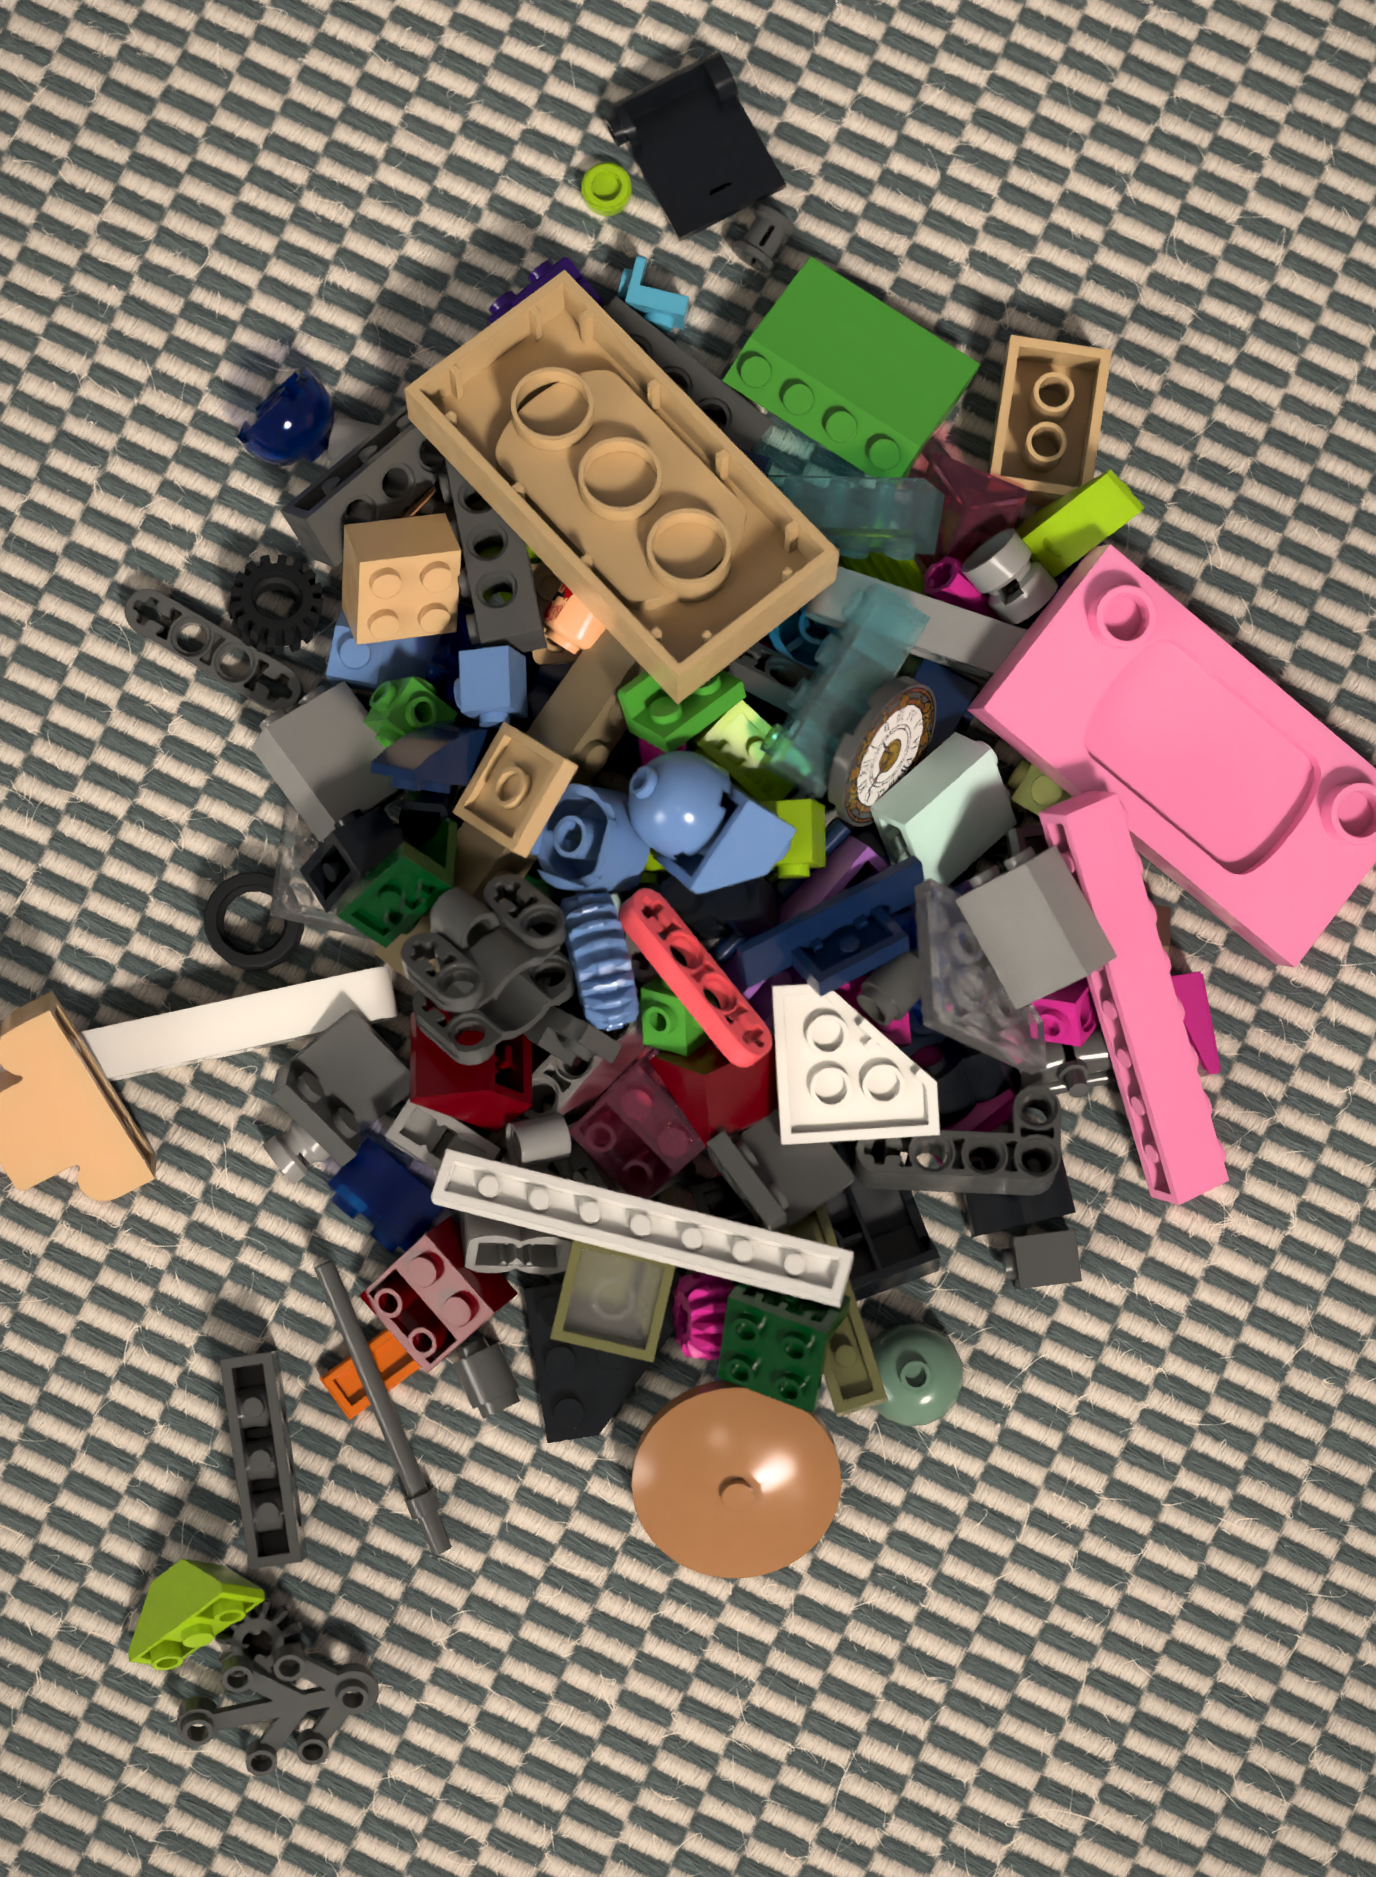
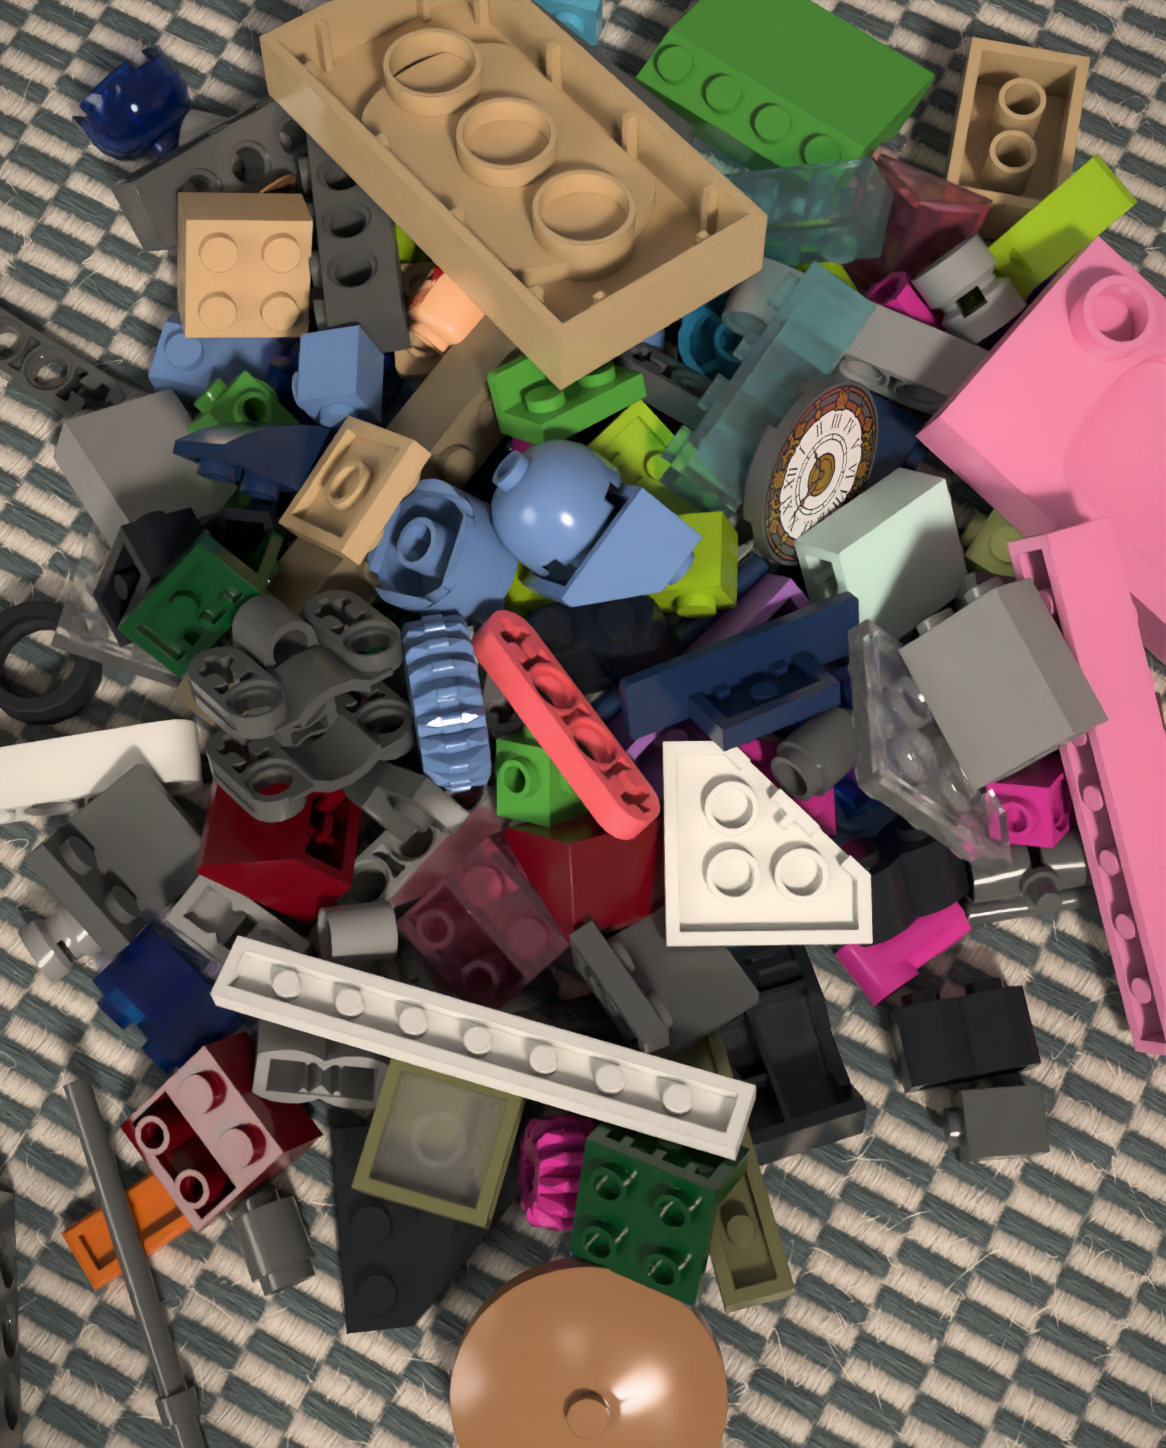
camera: 10 degrees right, 10 degrees down
(282, 578) = (102, 279): black tyre -> none
(918, 1374) = (835, 1265): sand green cylinder -> none
(956, 1147) = (894, 966): dark grey beam -> none

